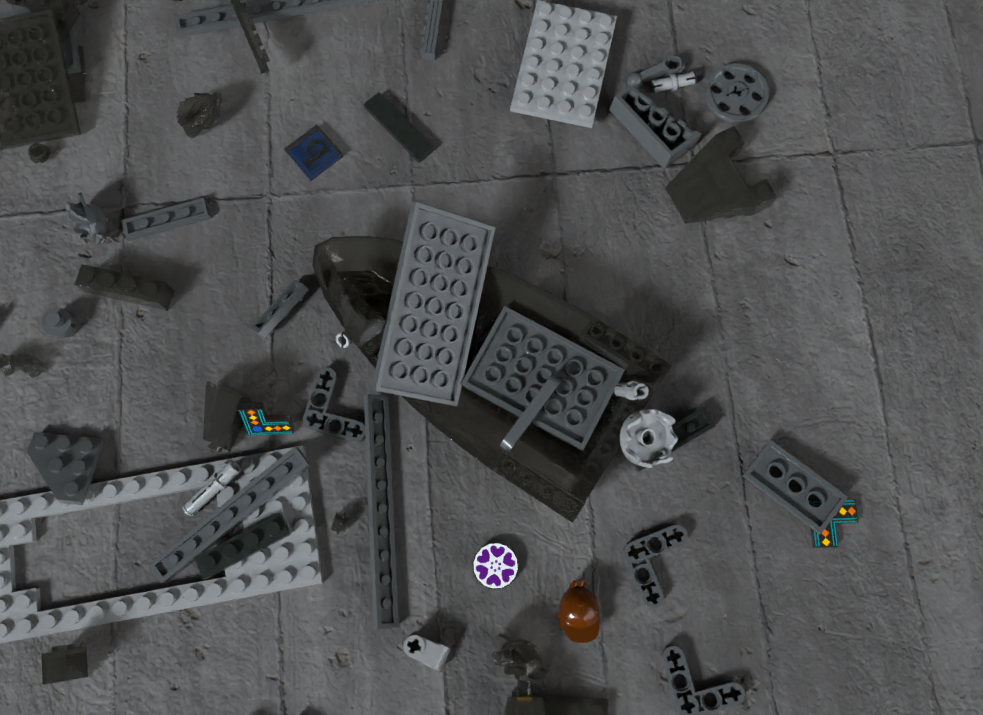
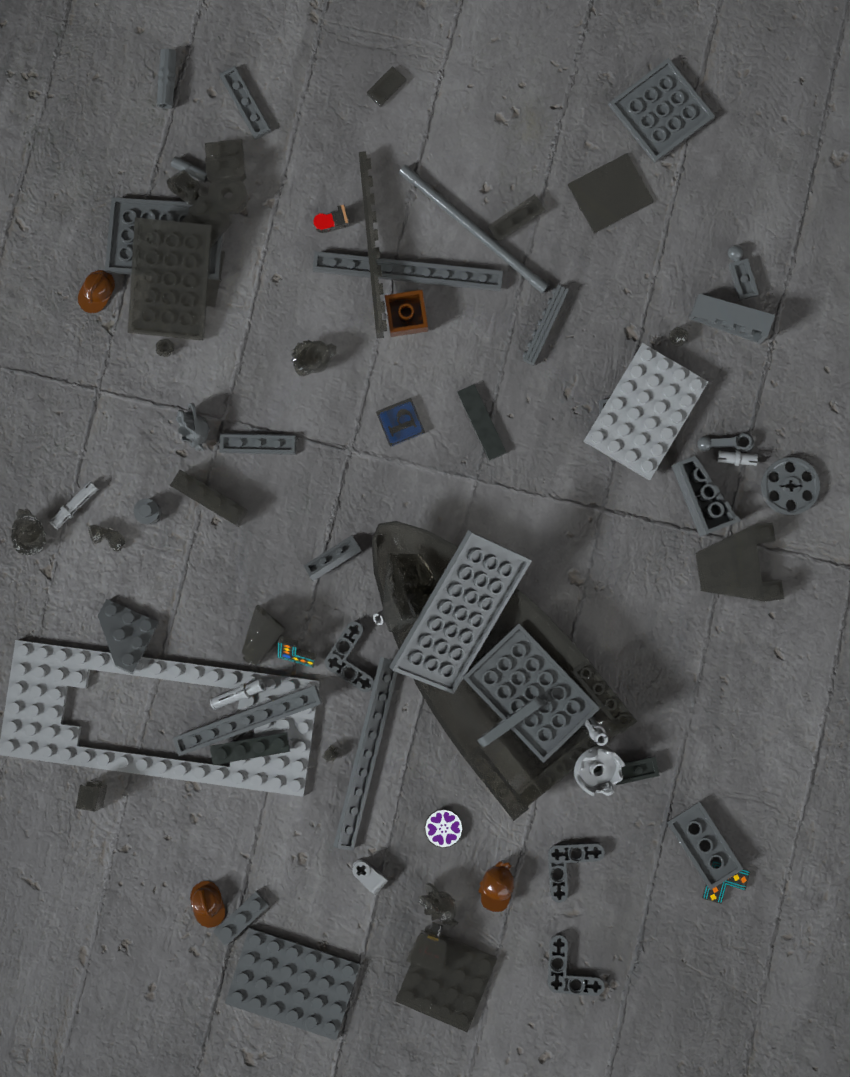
camera: 25 degrees right, 10 degrees up
(286, 43) = (406, 313): none -> reddish brown brick

